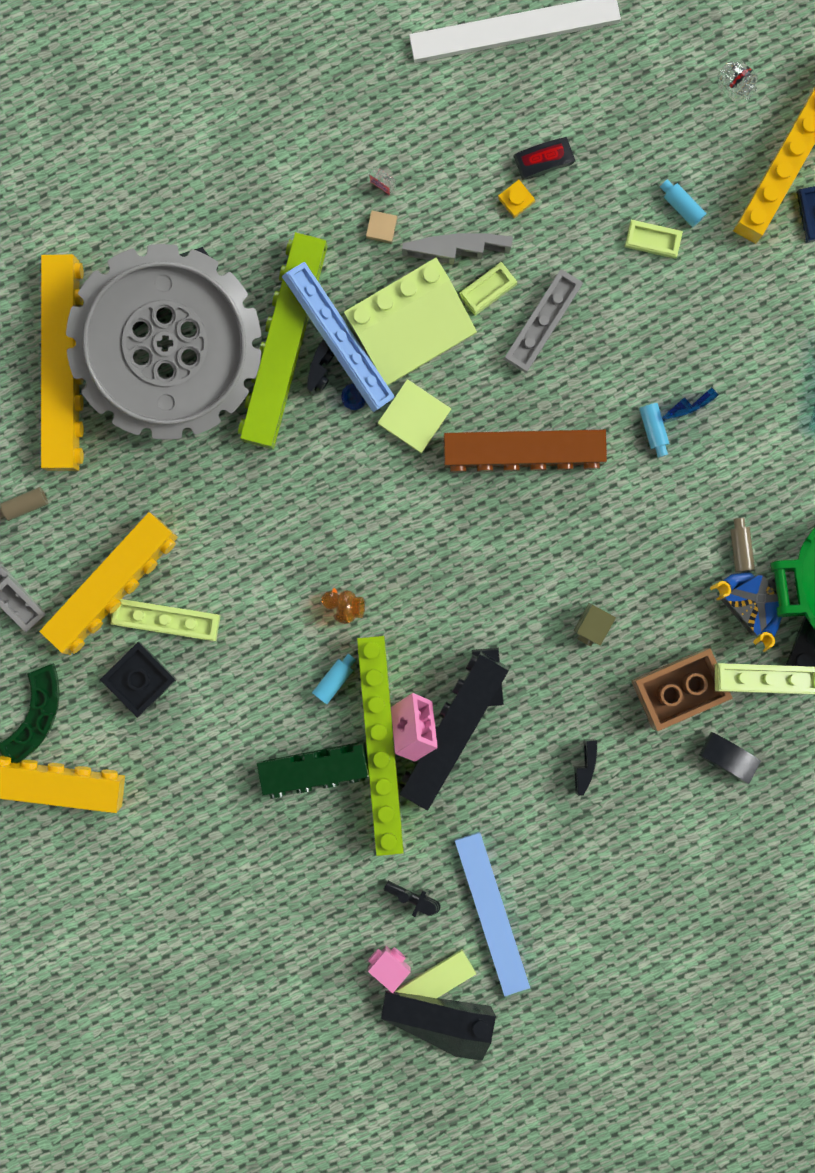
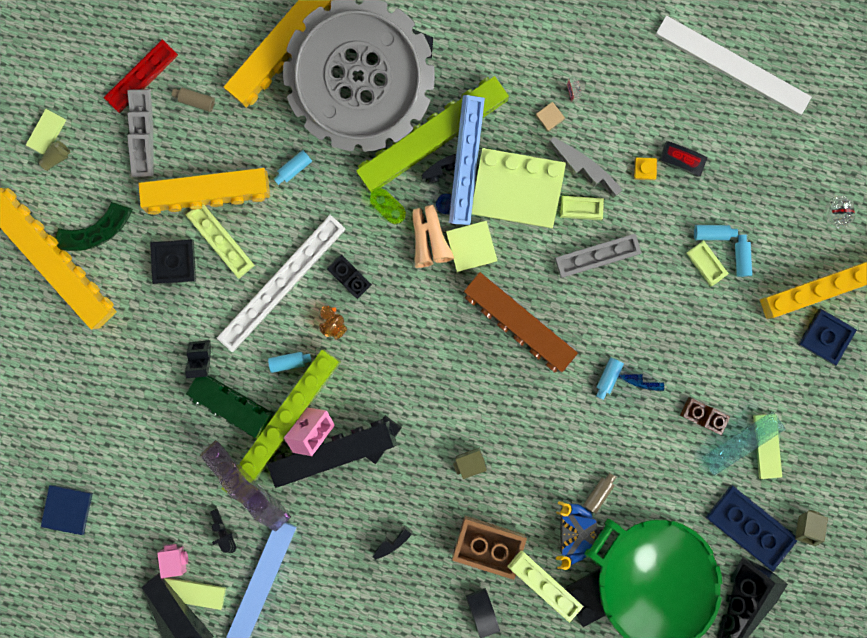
camera: 40 degrees right, 0 degrees up
(175, 488) = (292, 167): none -> medium azure cylinder
(242, 1008) = (66, 509): none -> dark blue tile
(245, 751) = (198, 359): none -> black slope
(261, 610) = (281, 283): none -> white tile
(301, 445) = (388, 206): none -> clear neon green plate
(321, 547) = (349, 276): none -> black slope
(388, 444) = (440, 249): none -> light nougat piece
(397, 834) = (243, 488): none -> arch
(635, 203) = (714, 232): none -> medium azure cylinder
(777, 386) = (705, 416): none -> reddish brown slope

